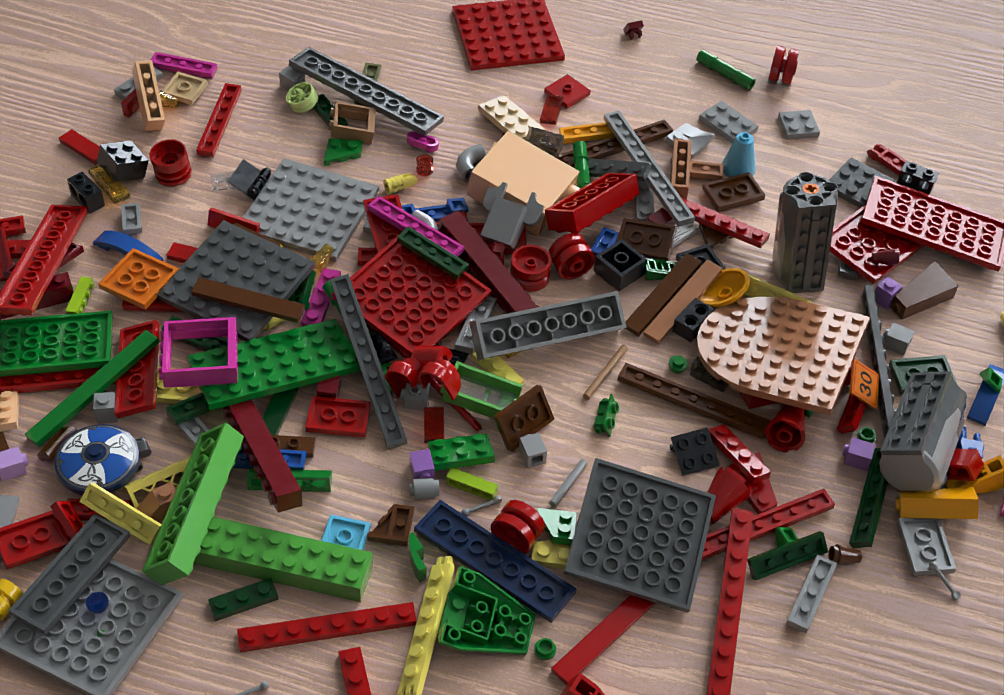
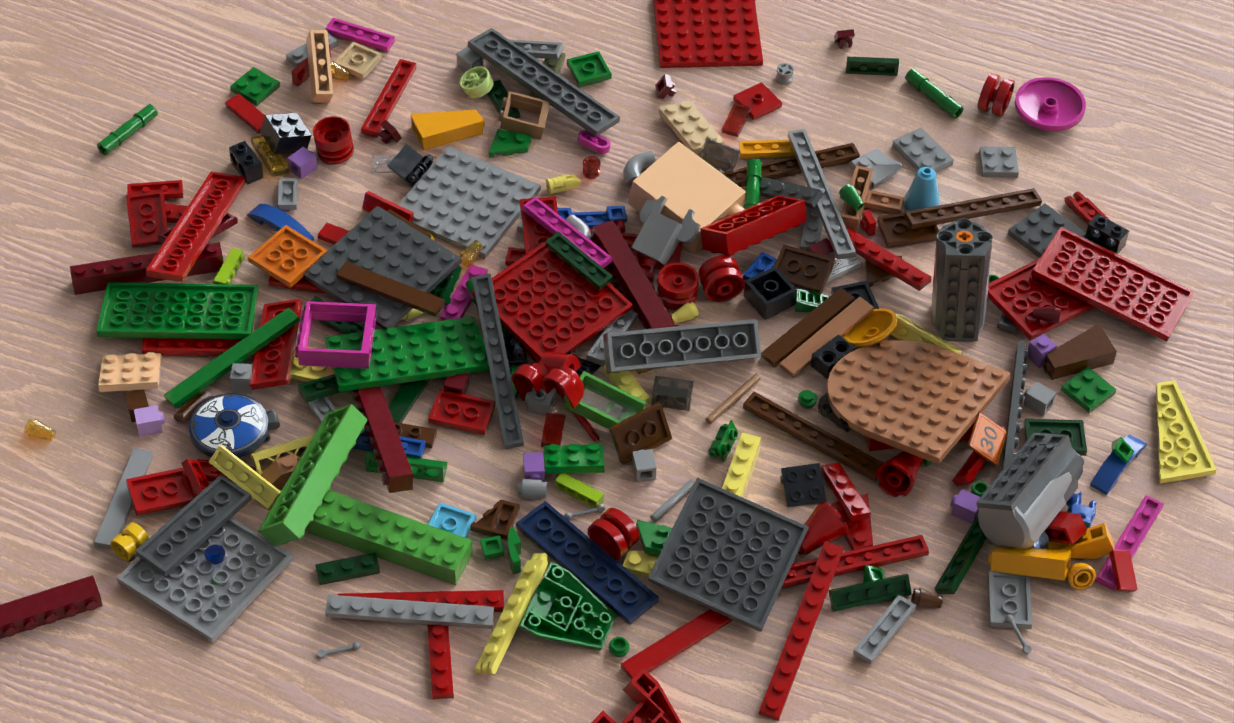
camera: 10 degrees right, 0 degrees up
(87, 120) = (255, 86): none -> green plate
(142, 187) = (302, 162): none -> medium lavender brick
(224, 151) = (389, 132): none -> dark red tile
(278, 141) = (446, 127): none -> light orange slope
(317, 640) = (409, 611): none -> light grey plate
(359, 62) = (541, 49): none -> light grey plate
(393, 556) = (492, 547): none -> green plate
(405, 76) = (589, 69): none -> green plate
(480, 86) = (665, 87): none -> dark red tile
(543, 292) = (685, 313): none -> light yellow cone
(546, 372) = (672, 393): none -> clear smoke brick
(587, 65) = (784, 74): none -> light grey wheel
(631, 437) = (742, 464): none -> light yellow brick
(664, 51) = (872, 66): none -> dark green plate
(679, 167) = (851, 197): none -> green cone
(696, 190) = (868, 223): none -> red plate
(788, 168) = (972, 208): none -> reddish brown plate
(832, 69) = (1050, 104): none -> dark pink dish
(939, 325) = (1088, 389): none -> green plate
(989, 511) = (1081, 576): none -> light orange brick

